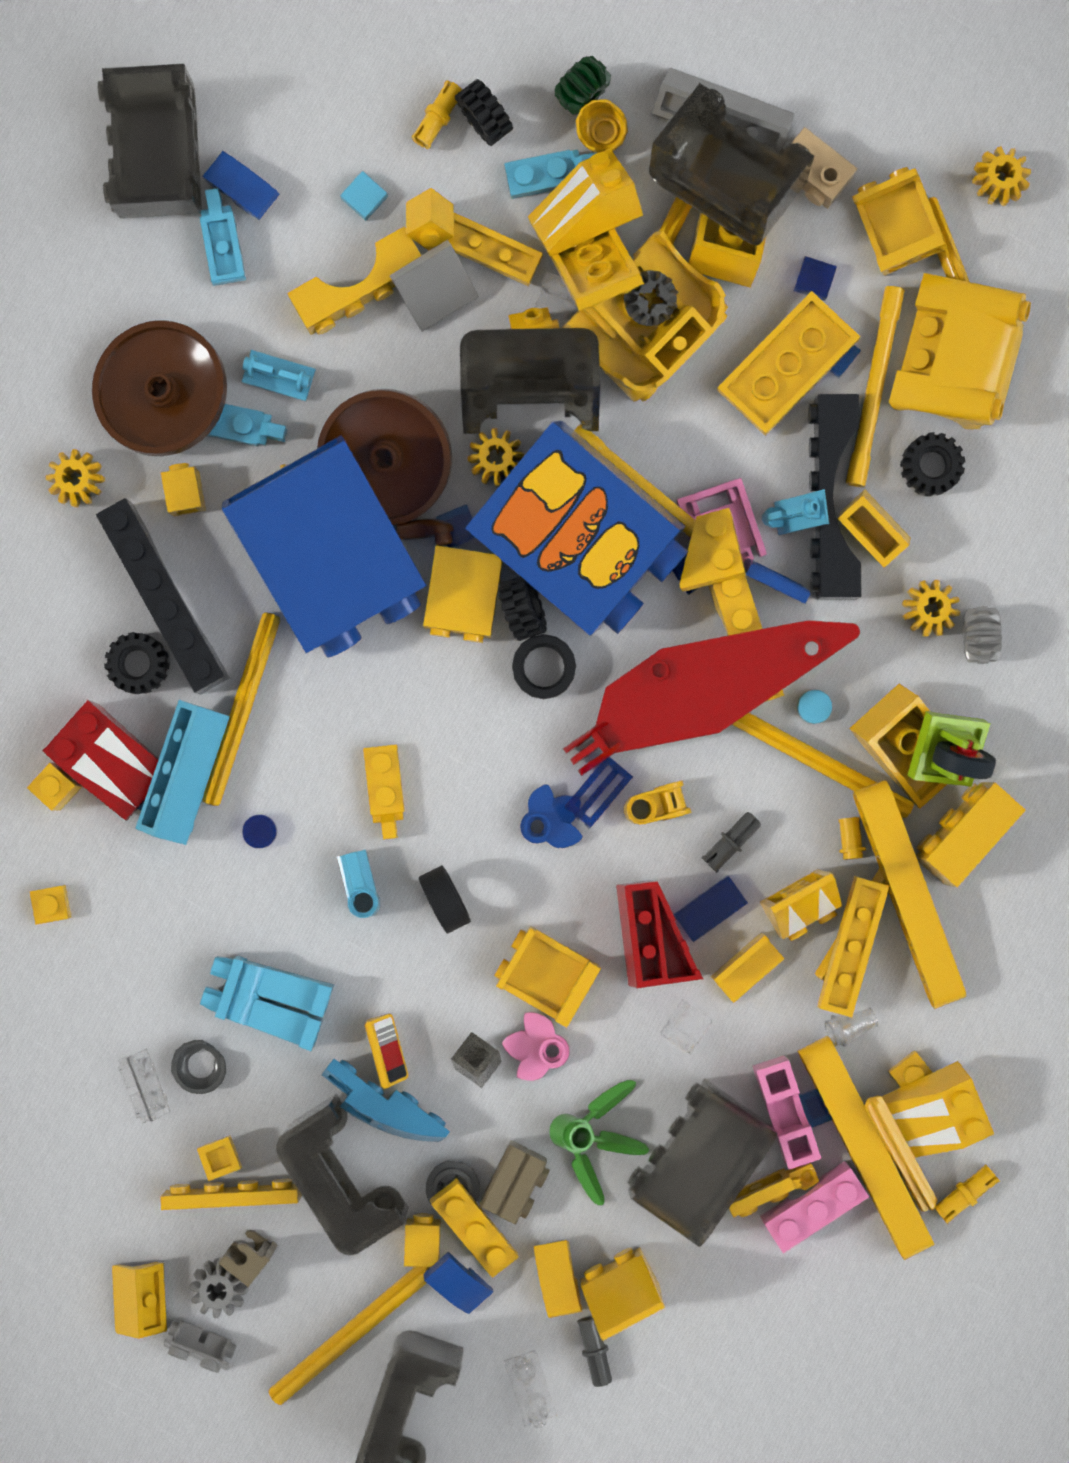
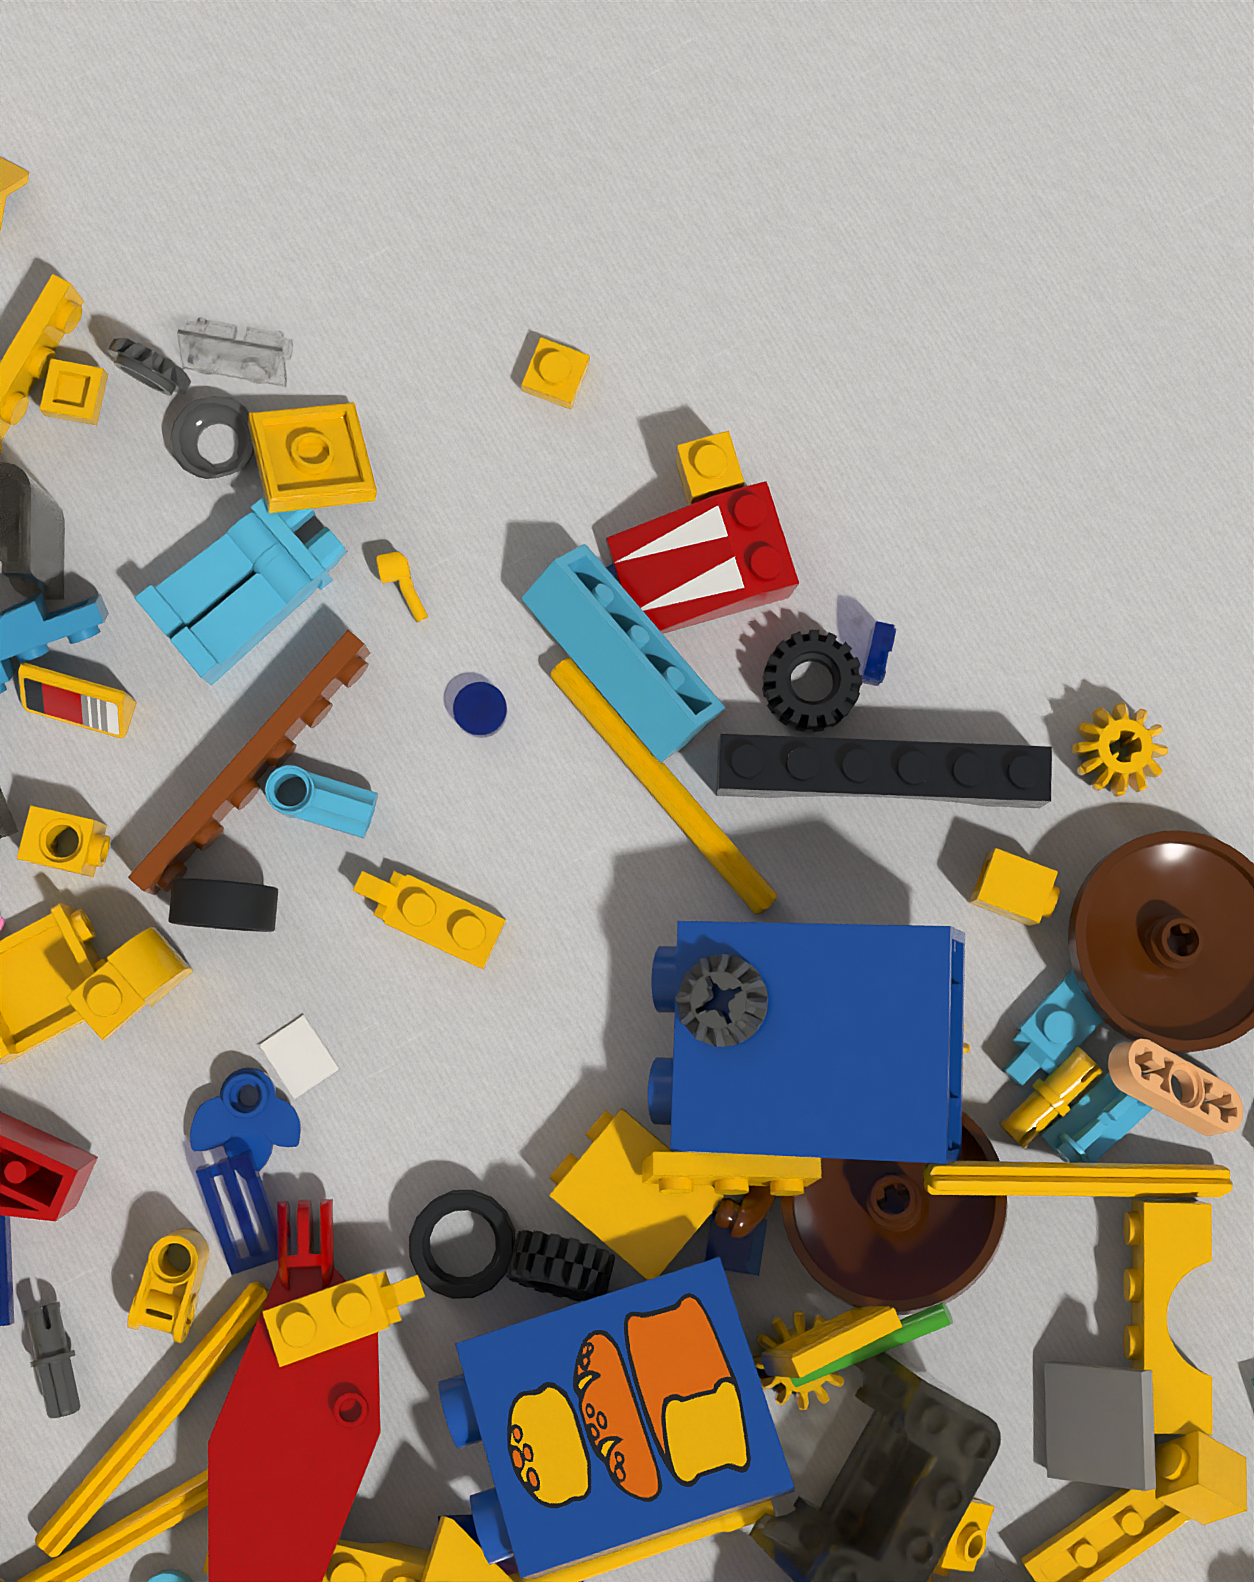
camera: 120 degrees right, 5 degrees down
(95, 639) = (879, 644): none -> clear blue tile
(177, 1005) = (311, 457): none -> yellow tile
(181, 1125) = (148, 367): none -> dark grey gear
(210, 924) = (395, 567): none -> yellow hand
(244, 356) = (1155, 1090): none -> light nougat beam
(282, 407) = (1051, 1097): none -> yellow pin
(315, 369) = (1076, 1179): none -> yellow axle
(329, 588) = (746, 1009): none -> dark grey gear
(347, 929) = (238, 781): none -> dark orange plate
(419, 548) = (729, 1172): none -> yellow plate
(463, 425) = (913, 1328): none -> bright green bar
(471, 1020) = (41, 837): none -> yellow brick
(472, 447) = (830, 1341): none -> yellow tile
(501, 813) = (299, 1057): none -> white sticker
(515, 923) = (131, 978): none -> yellow brick
(616, 706) = (338, 1315): none -> yellow hinge
(729, 770) = (152, 1421): none -> yellow axle

